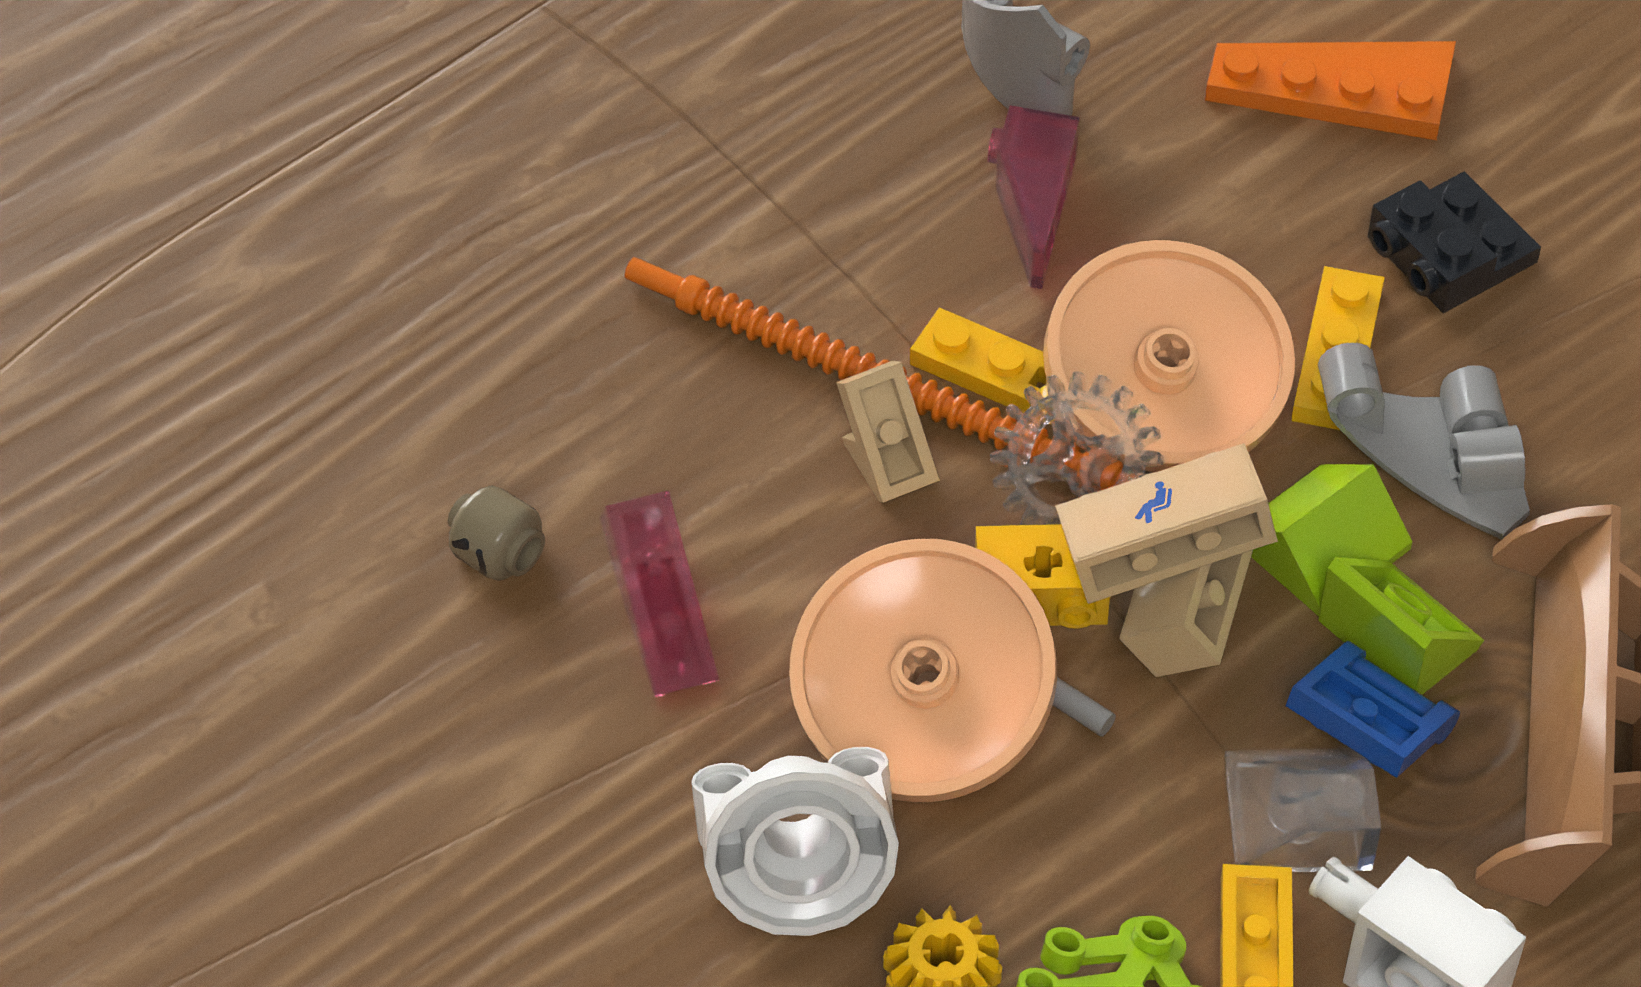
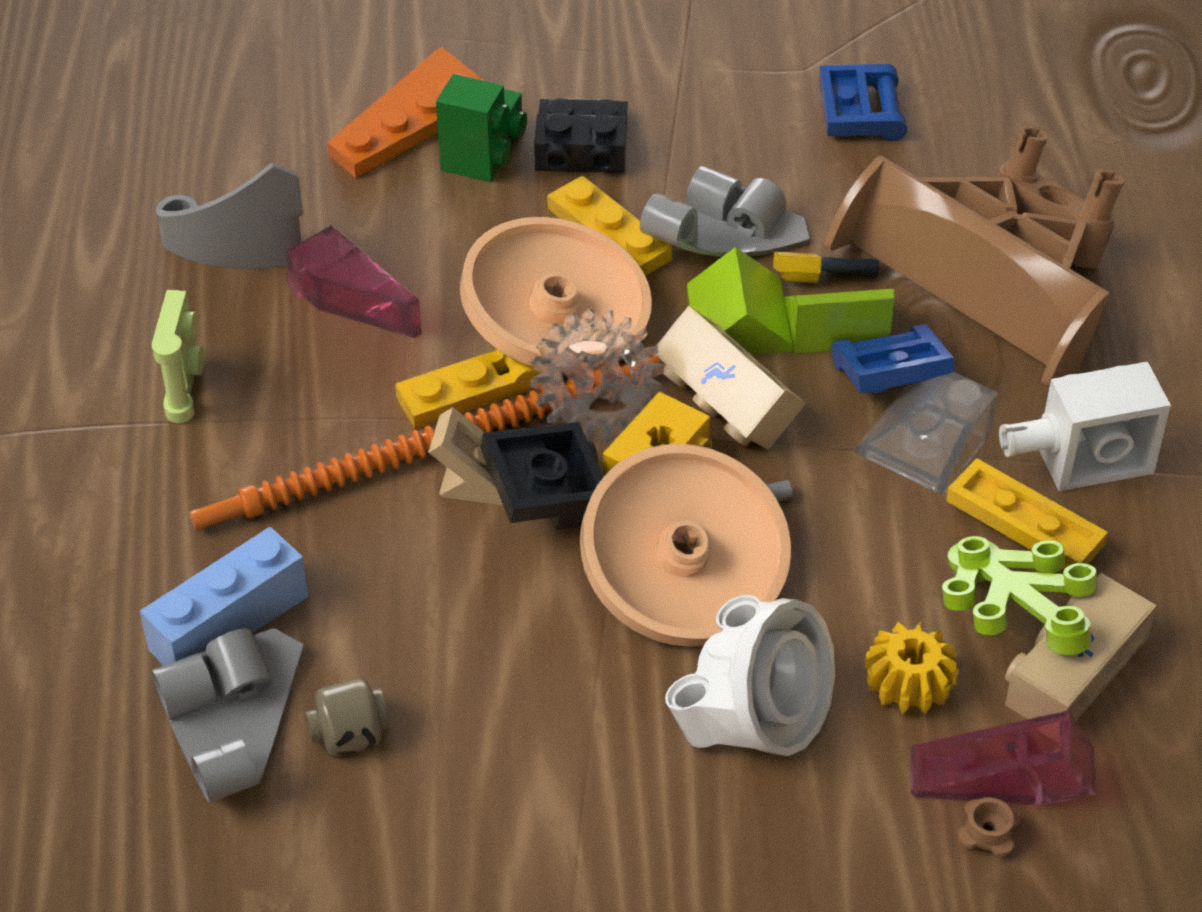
camera: 55 degrees left, 5 degrees down
(437, 439) = (229, 706): none -> light grey panel
(543, 353) = (231, 594): none -> light blue brick
(659, 592) = (484, 651): clear pink slope -> none
(811, 114) = (177, 354): none -> yellowish green plate
(912, 488) = (543, 472): none -> black plate
(1166, 523) = (709, 349): tan brick -> none
(1349, 145) = (477, 126): none -> green brick
(1450, 555) = (807, 267): none -> piece

